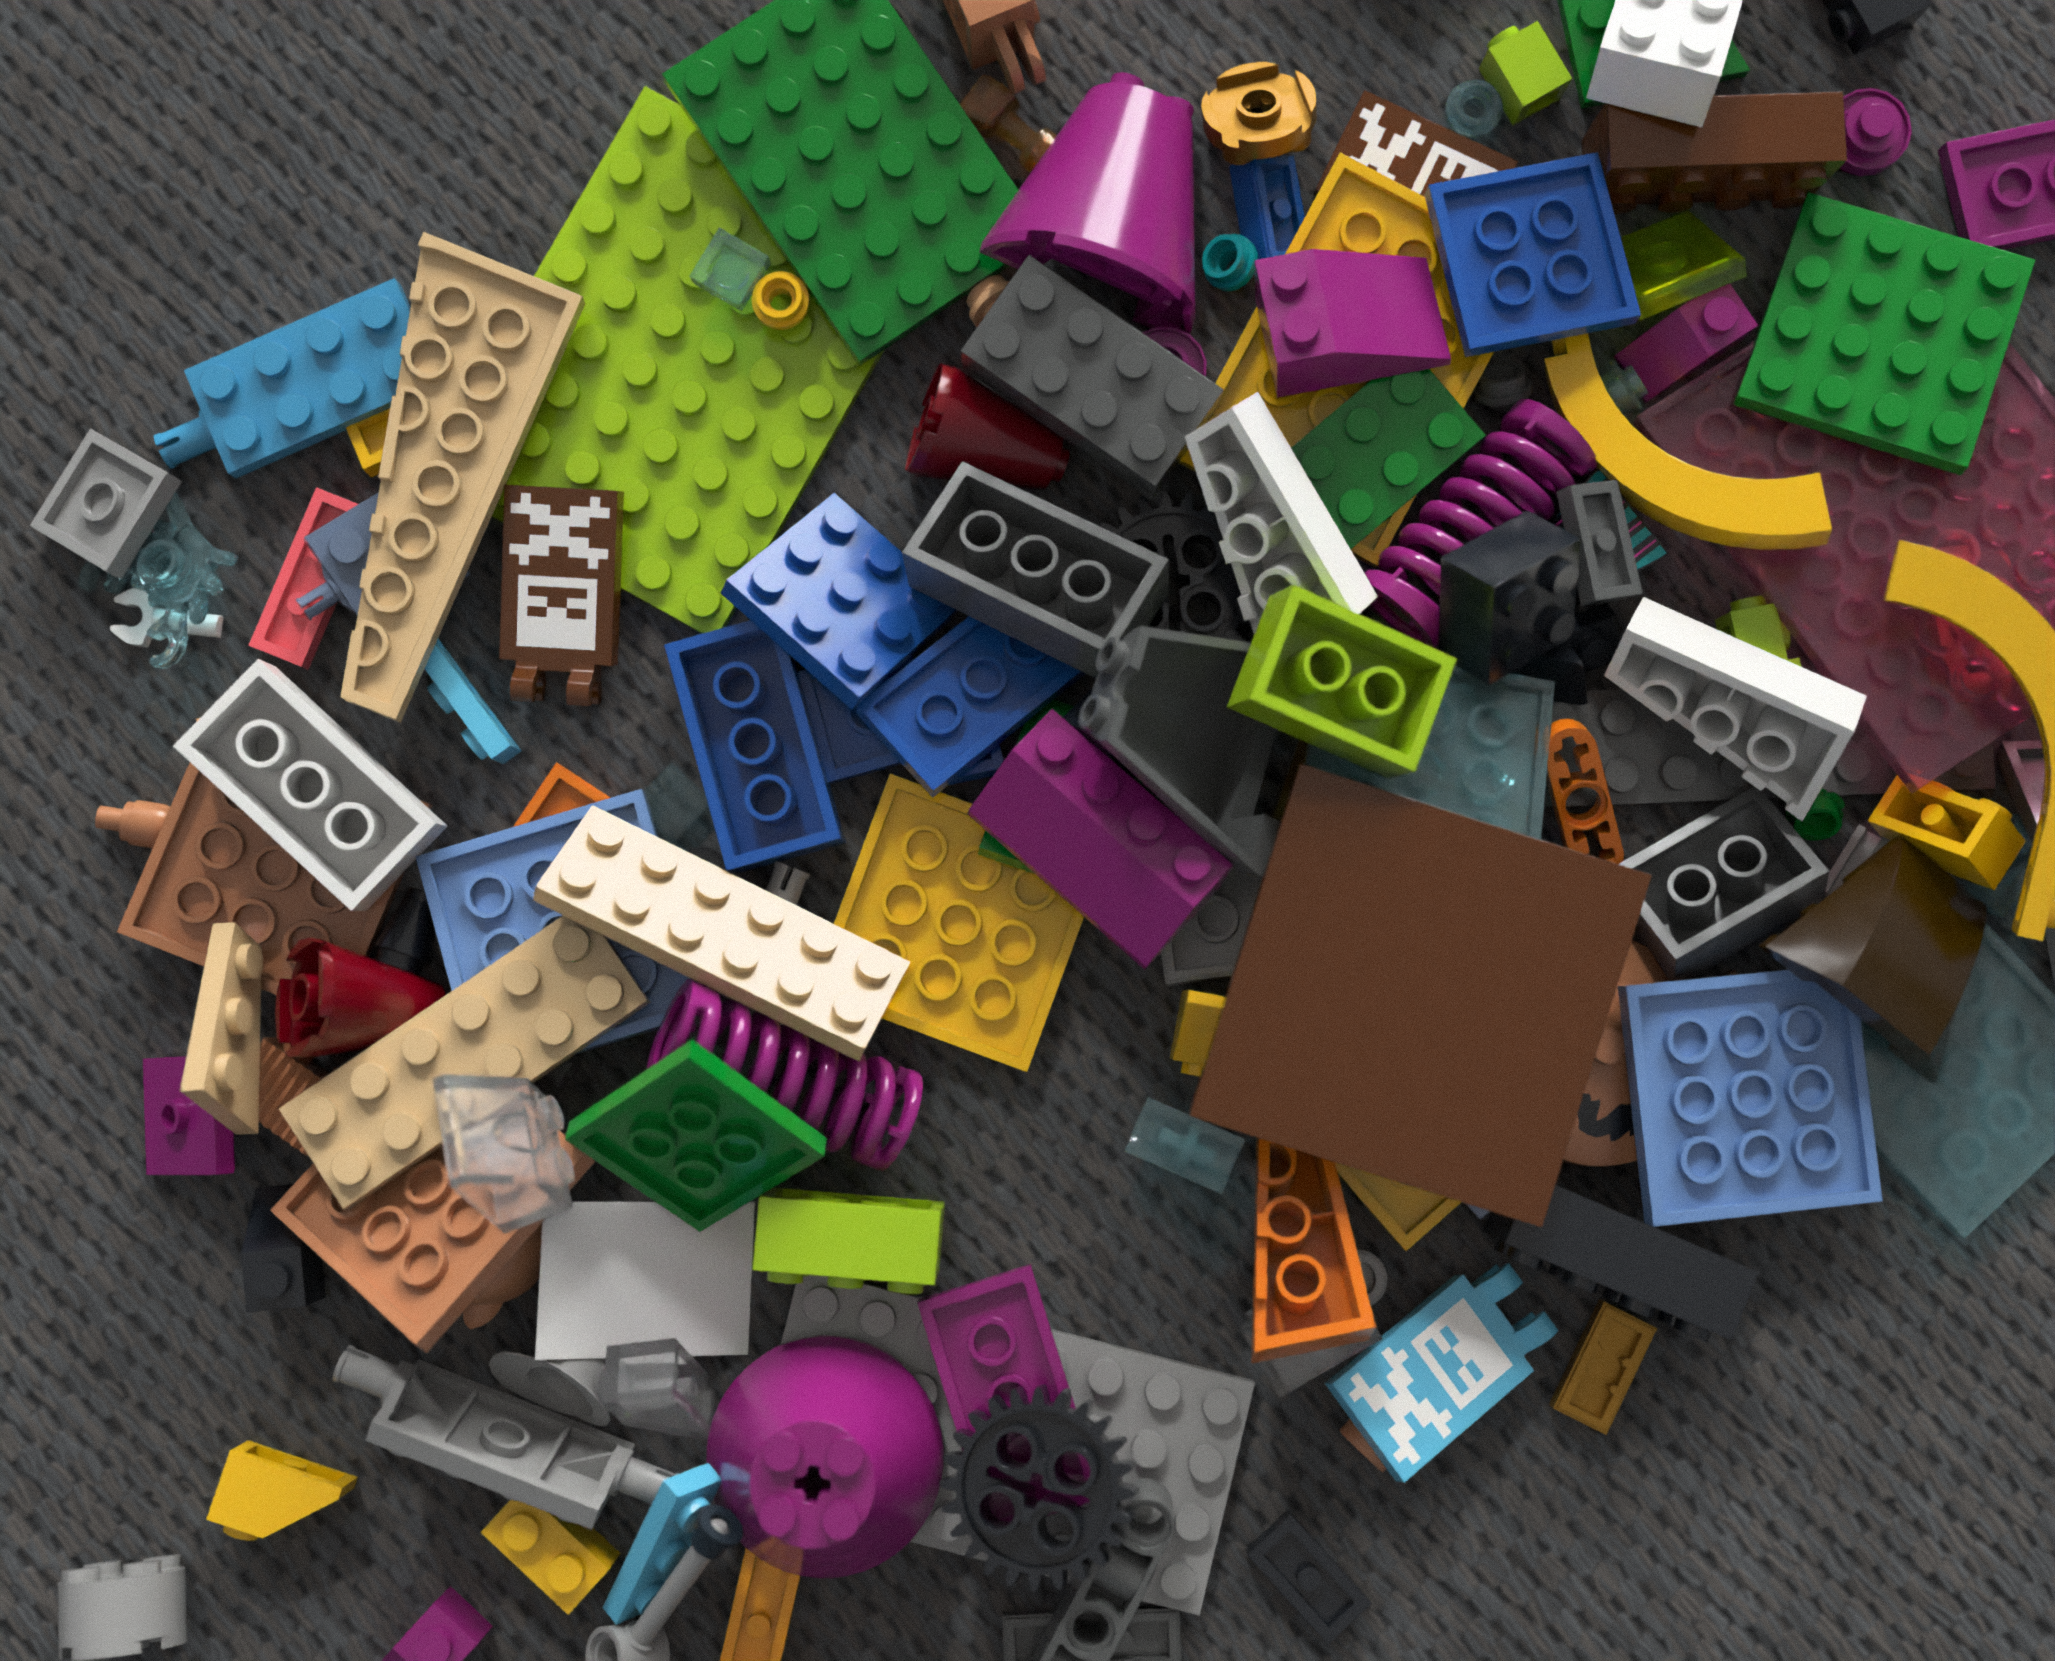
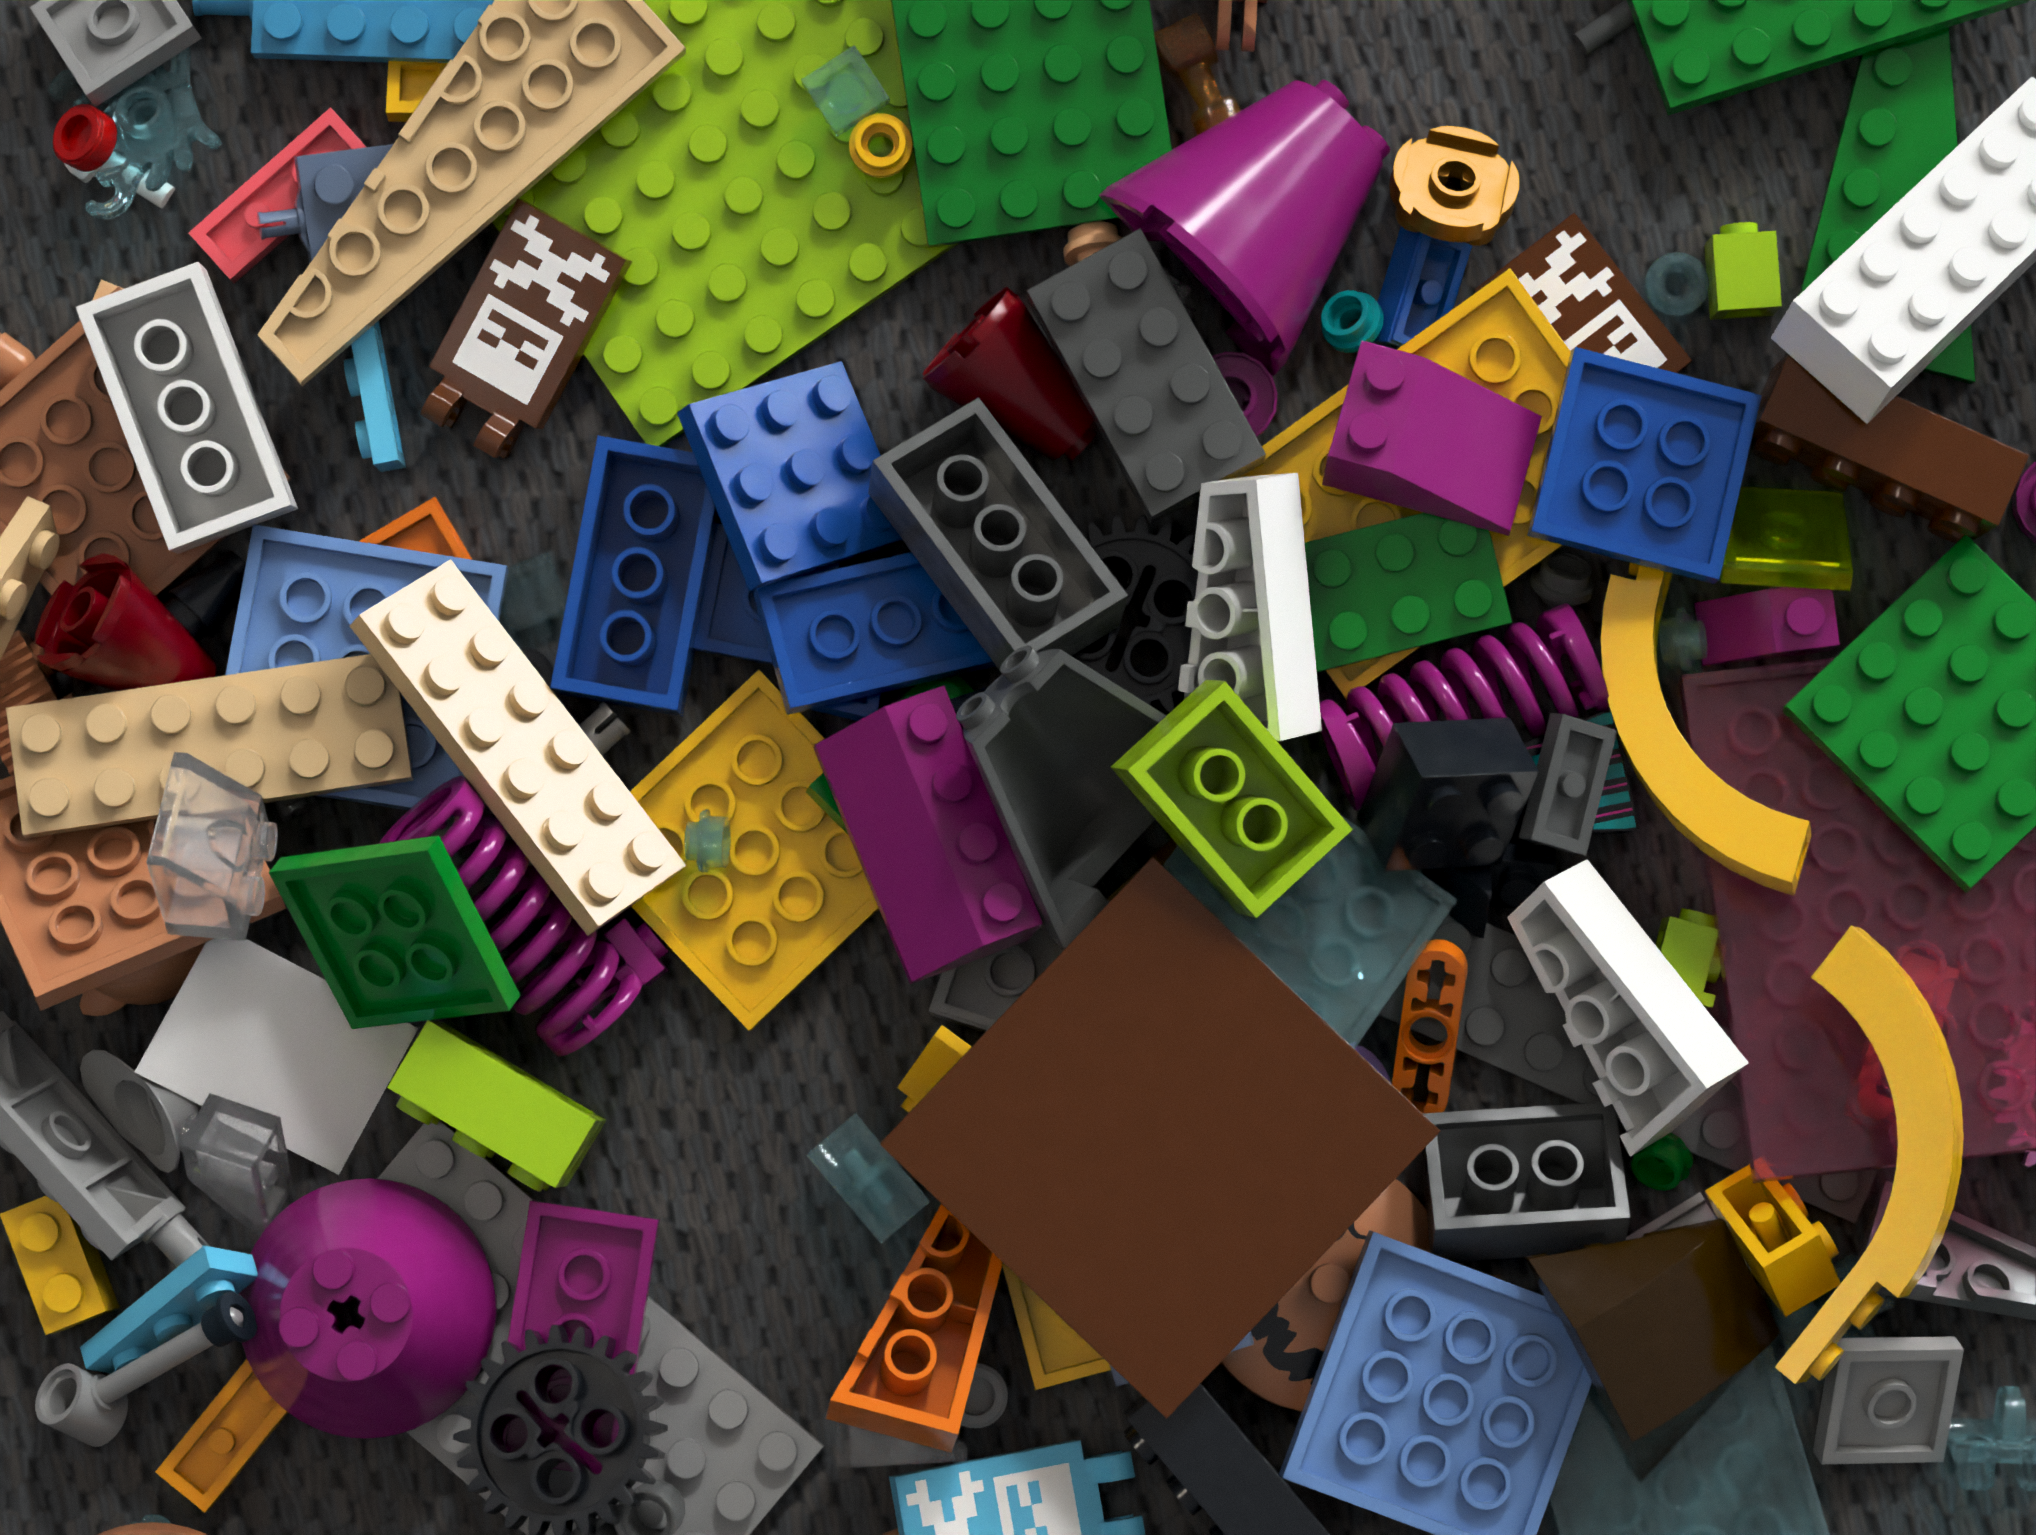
camera: 25 degrees right, 0 degrees up
(124, 608) = (84, 137): none -> red tile
(904, 1049) = (639, 949): none -> magenta plate
(918, 933) = (708, 841): none -> clear light blue plate

